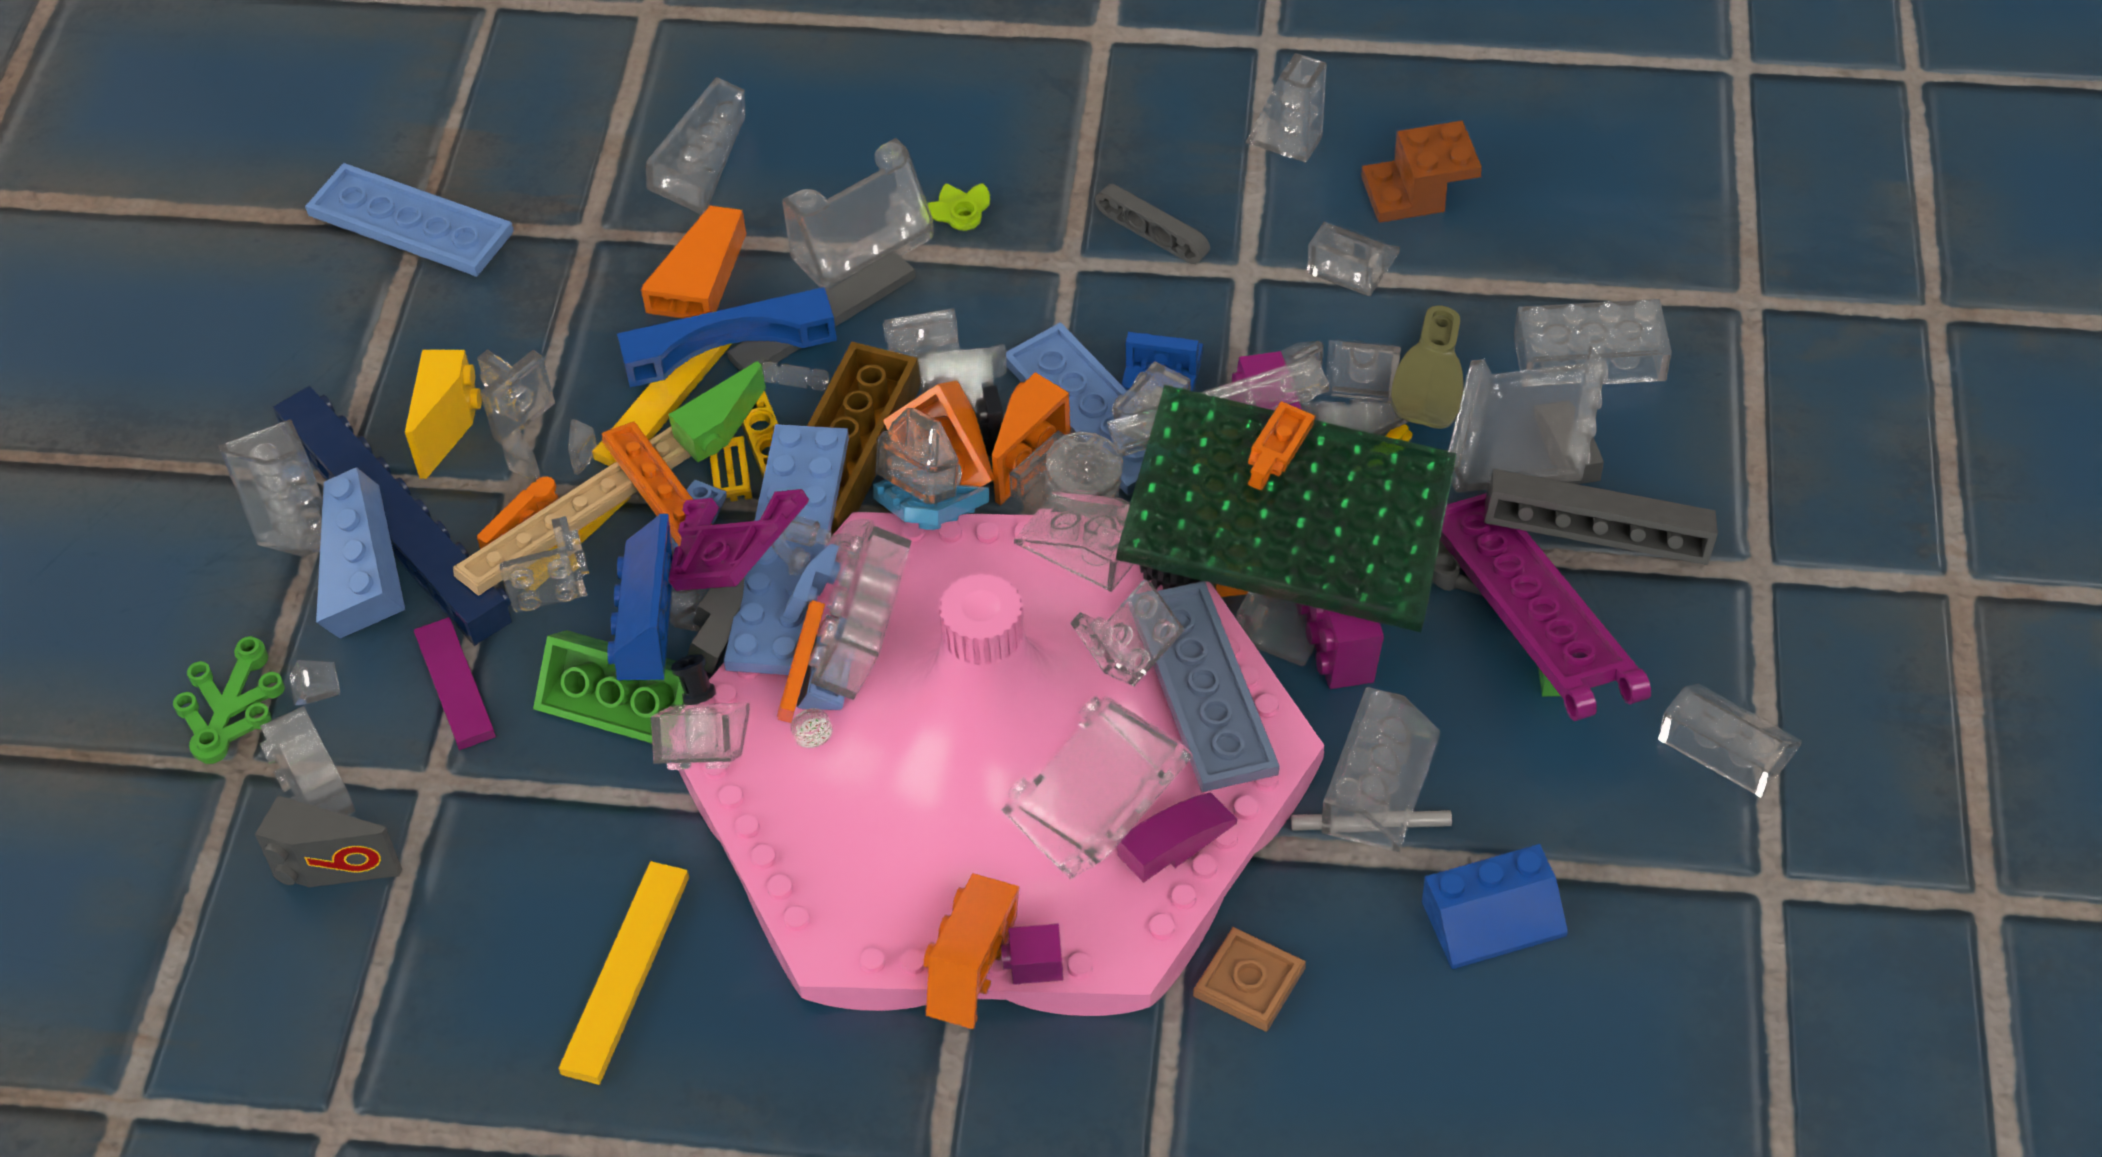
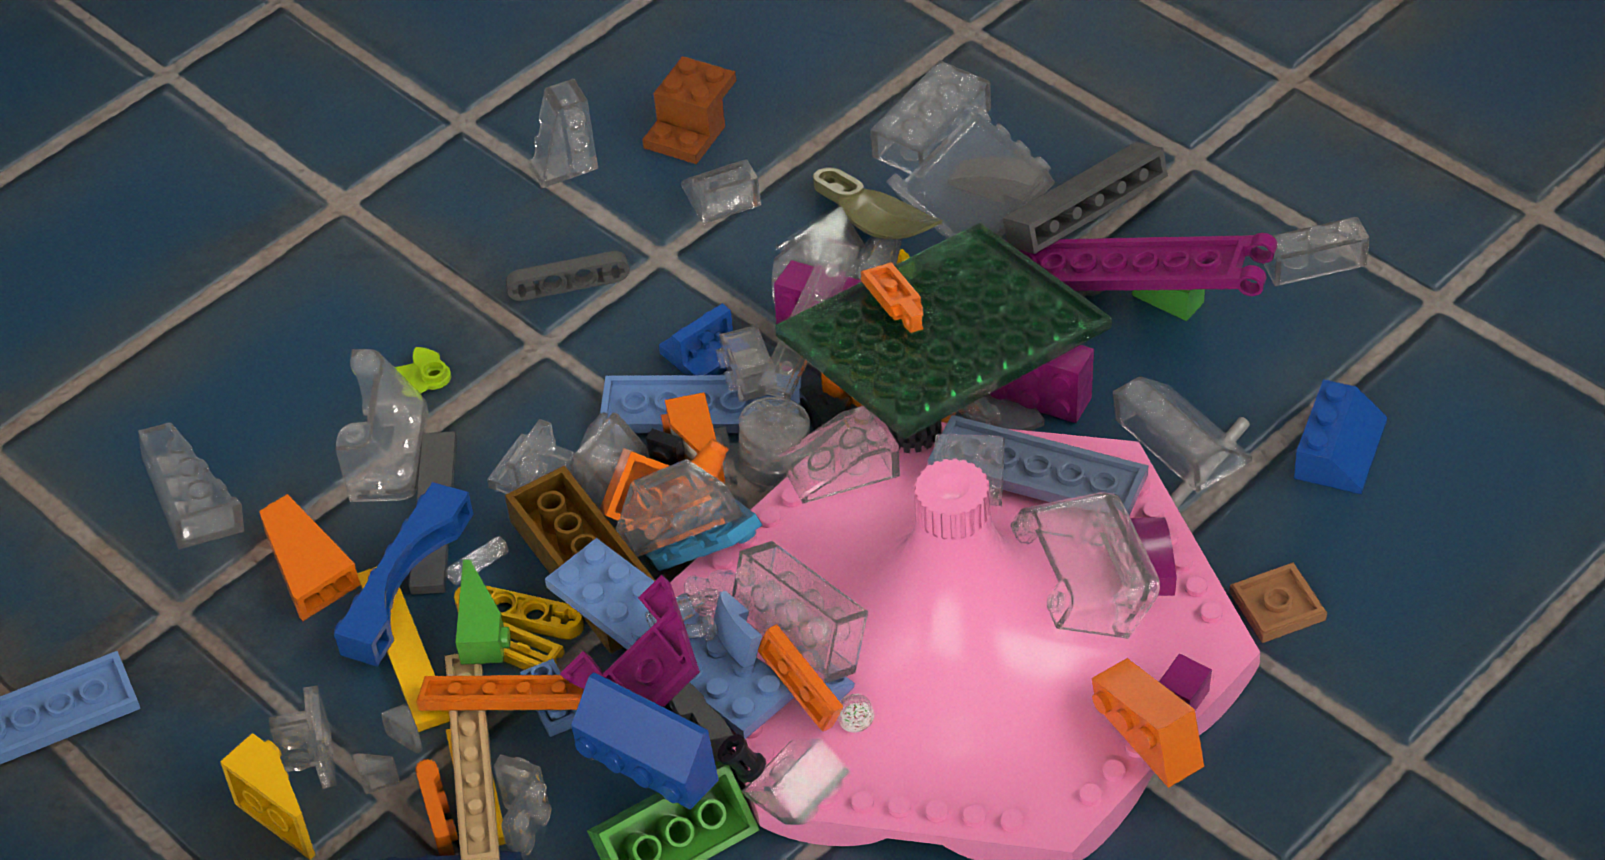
camera: 50 degrees left, 5 degrees down
(979, 446) = (711, 457): none -> orange cone

